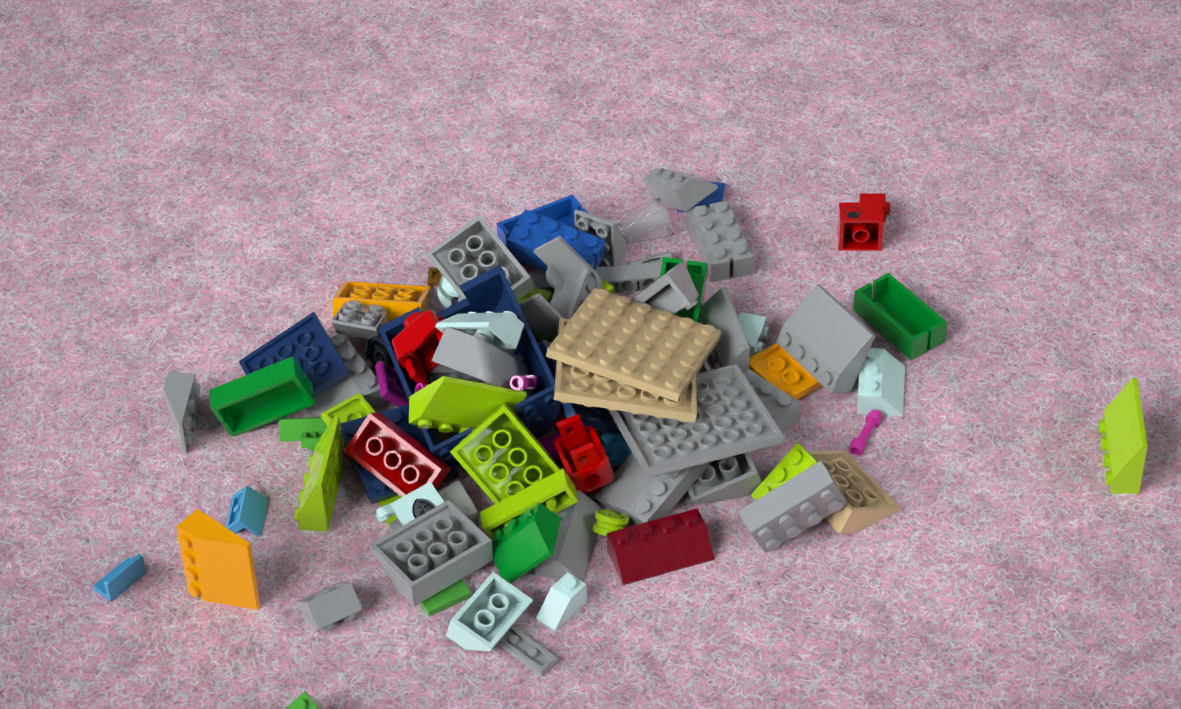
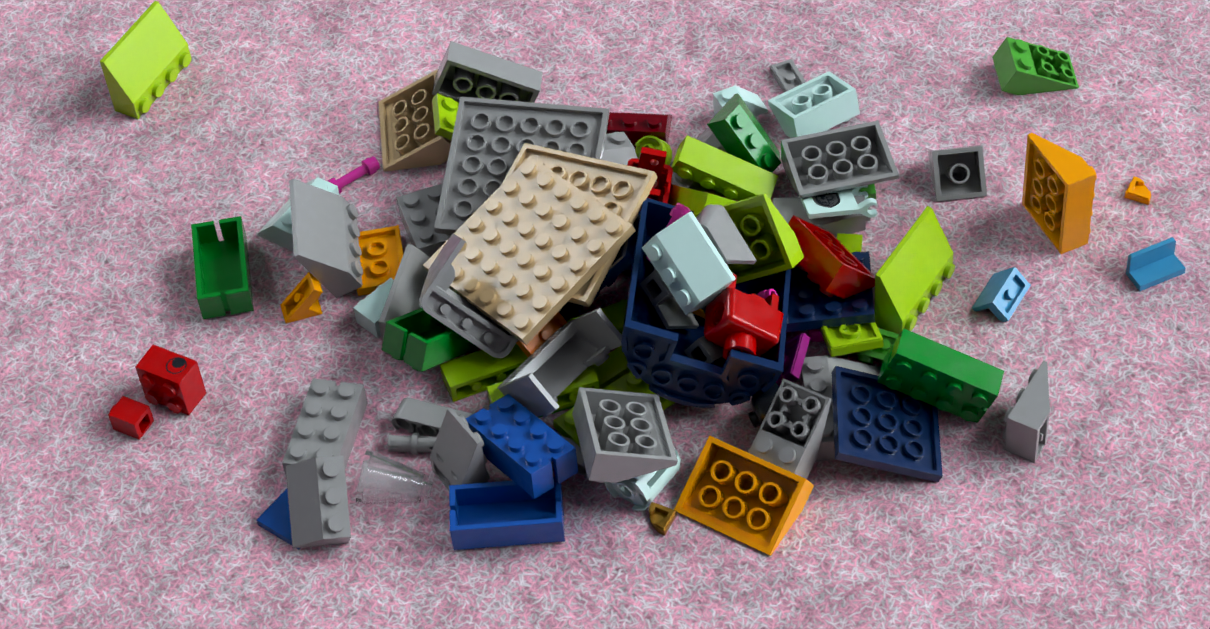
camera: 150 degrees left, 5 degrees up
(156, 649) = (1138, 191): none -> light orange tile

